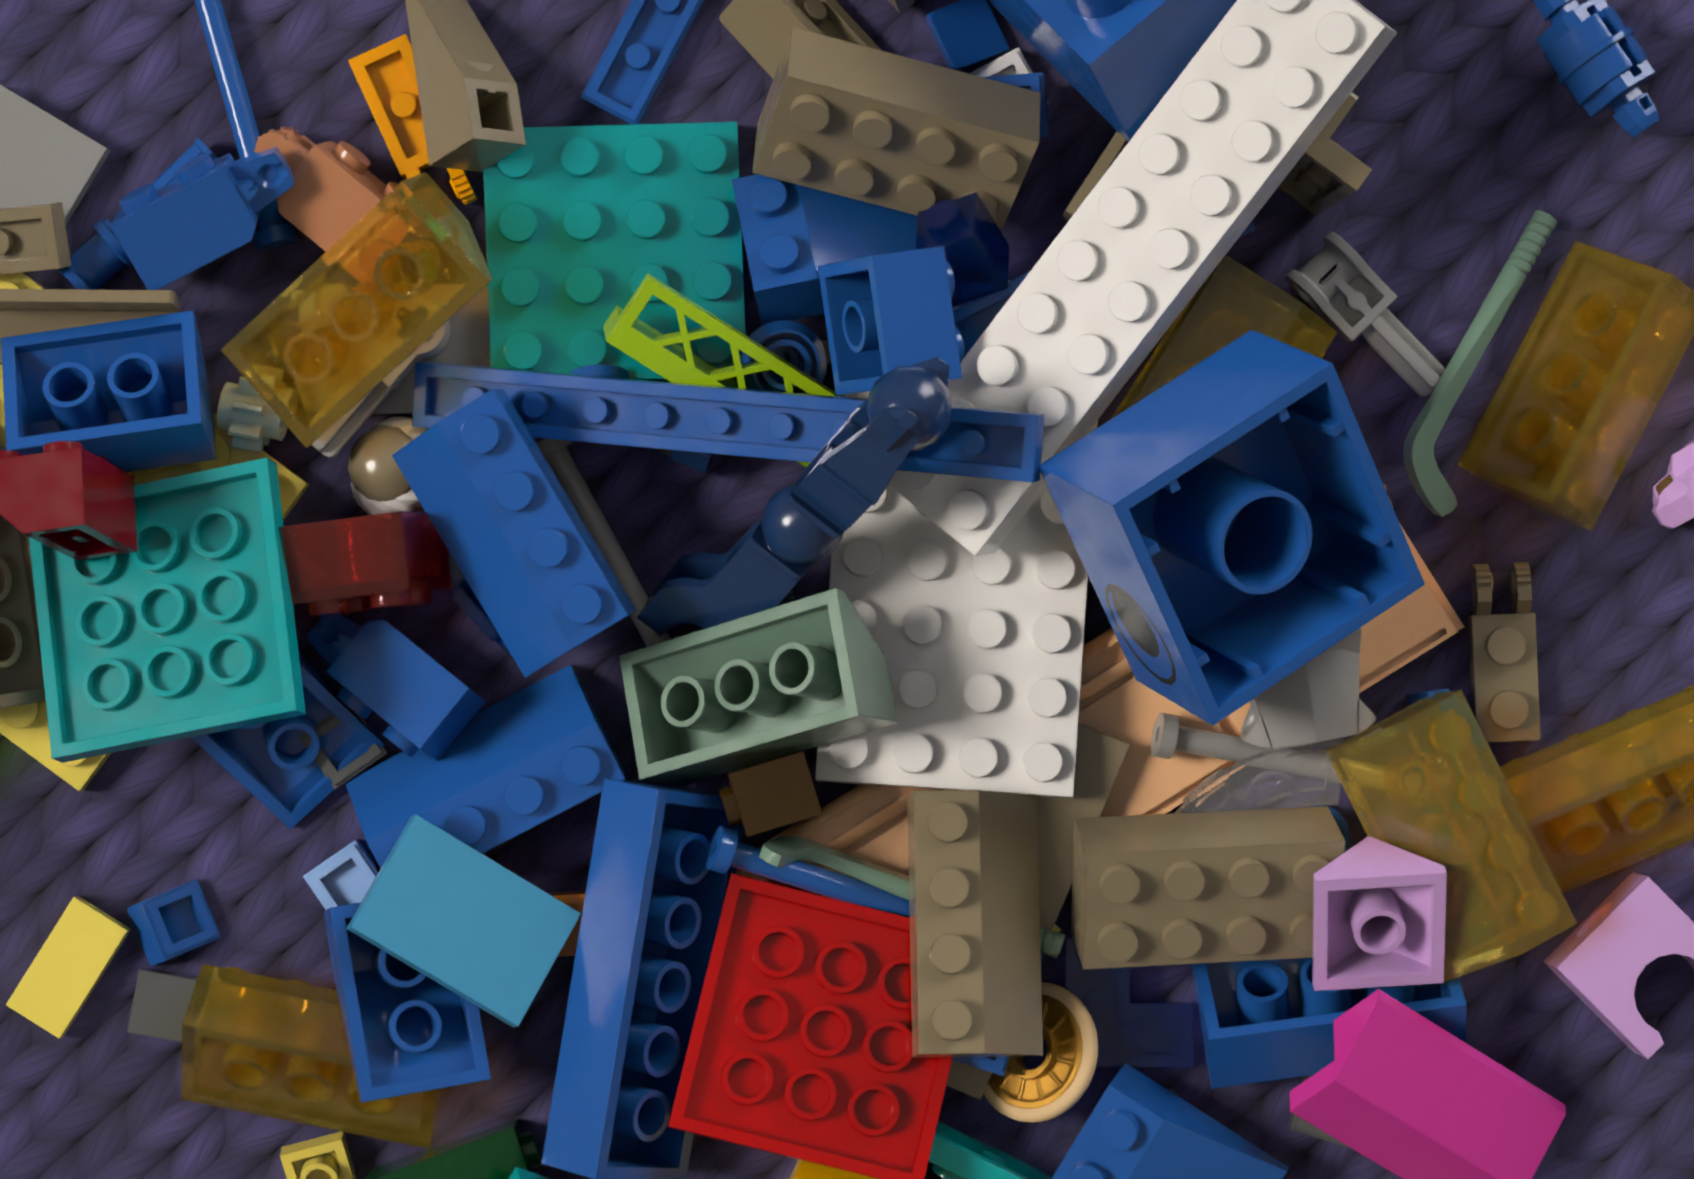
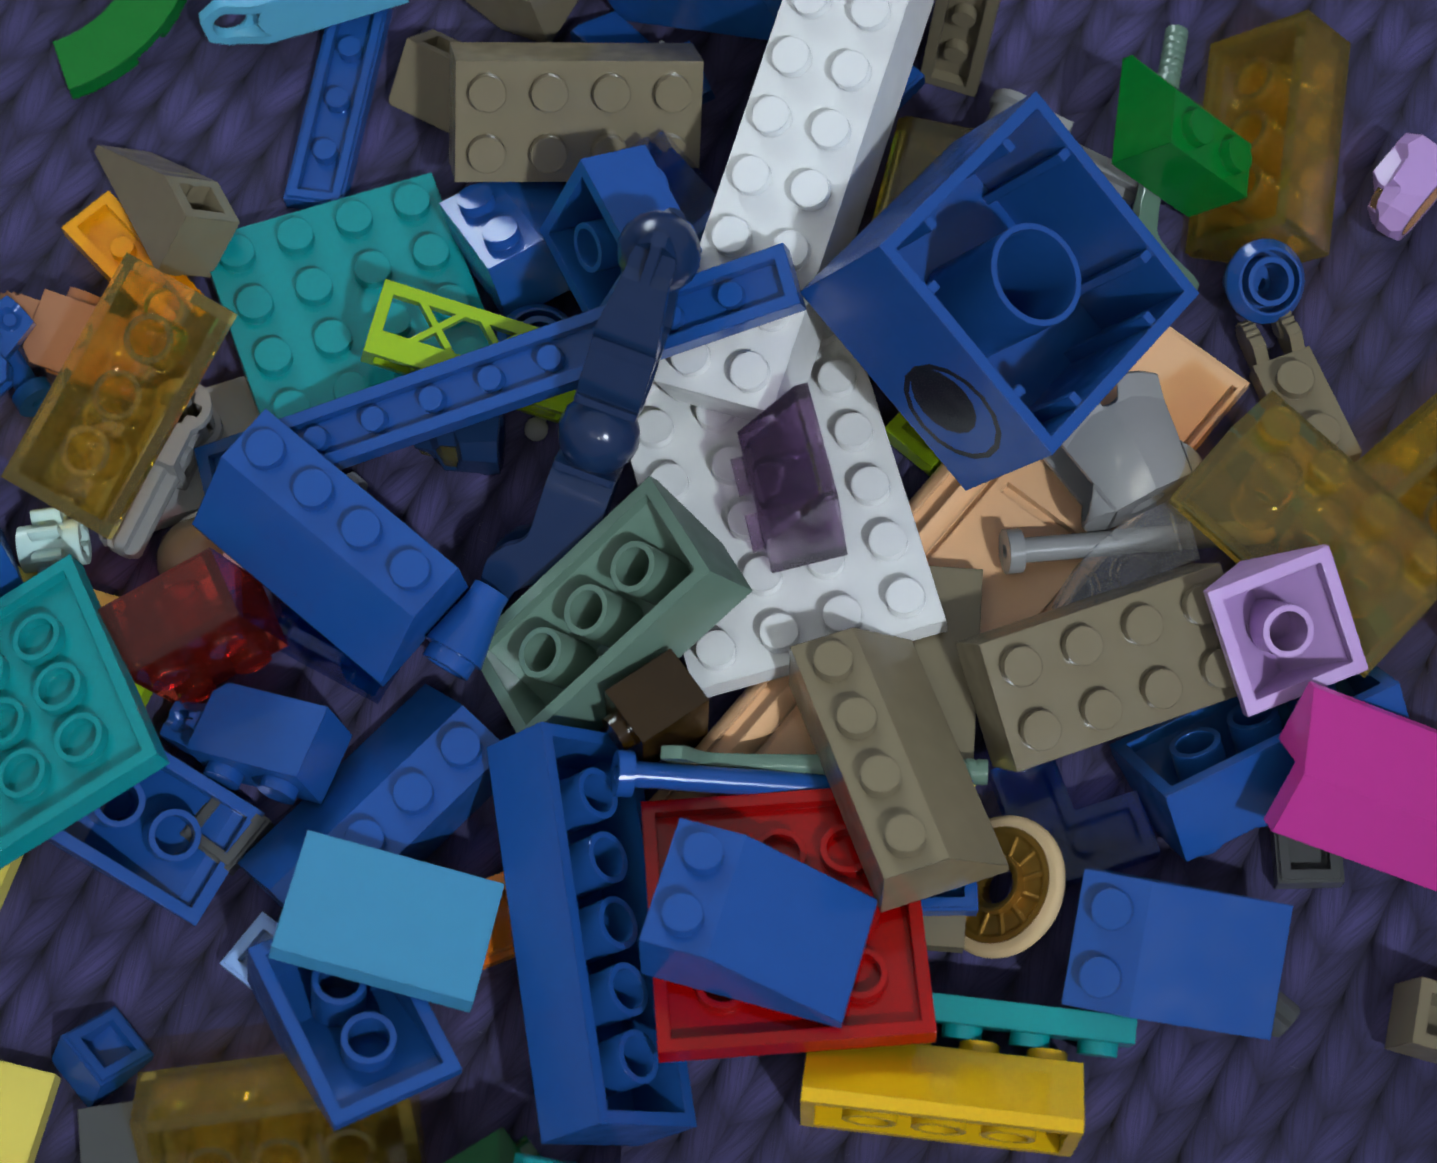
camera: 15 degrees left, 20 degrees down
(619, 653) = (466, 631): none -> blue cone
(795, 1044) = (754, 925): none -> blue slope
(968, 627) = (790, 484): none -> clear purple slope
(1490, 361) = (1176, 144): none -> green slope
(1514, 536) = (1264, 280): none -> blue cone

